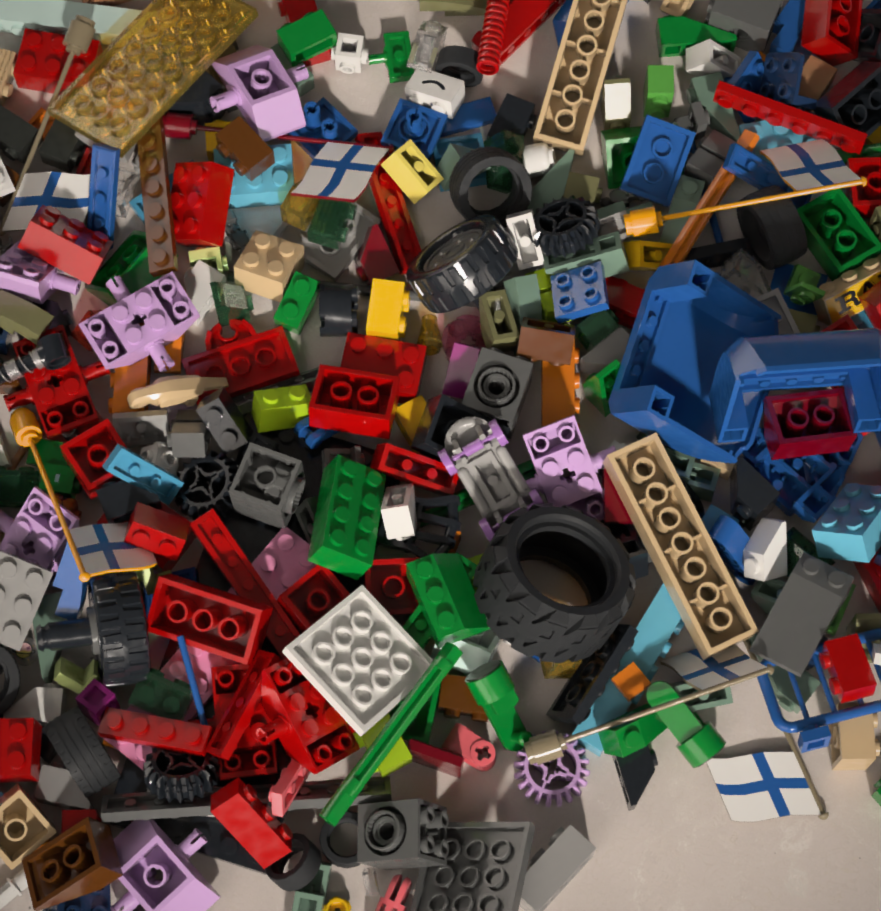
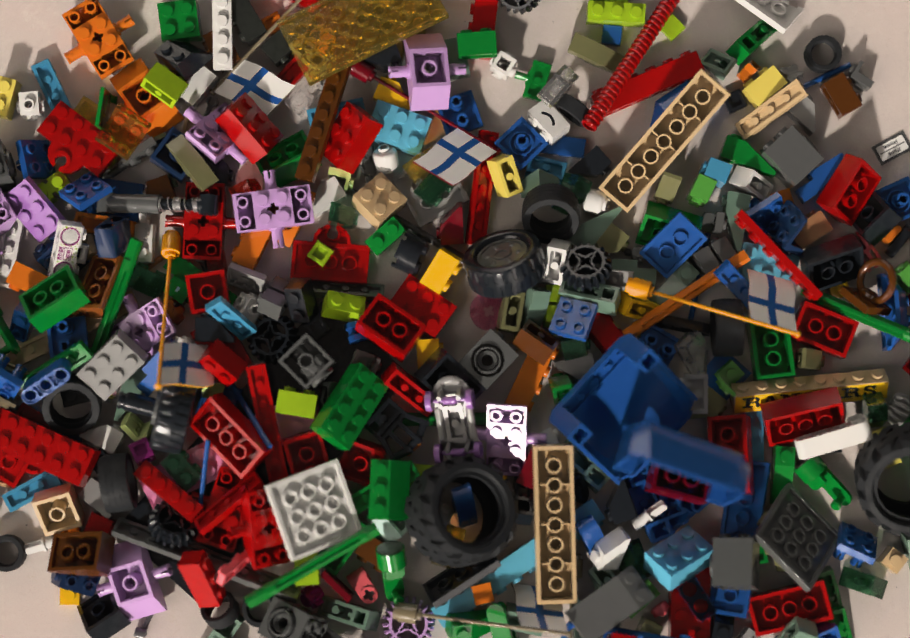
camera: 25 degrees right, 15 degrees up
(103, 189) = (289, 100): blue tile -> none
(174, 390) = (278, 265): tan animal -> none
(220, 584) = (251, 416): none -> blue axle
(223, 359) = (320, 253): none -> lime tile
(244, 148) = (396, 112): reddish brown brick -> none
(254, 215) = (385, 158): none -> white head
(277, 545) = (296, 403): none -> lime brick
(399, 512) = (385, 416): white slope -> none
(408, 788) = (312, 596): none -> magenta gear
(430, 335) = (464, 297): clear yellow cone -> none
(460, 369) = (473, 331): tile -> none
(471, 790) = (350, 613): none -> sand green slope
(551, 575) = (464, 505): none -> blue slope
(666, 54) = (716, 170): none -> dark azure brick
(791, 491) = (649, 514): none -> white axle
(867, 603) = (660, 609): none -> coral tile

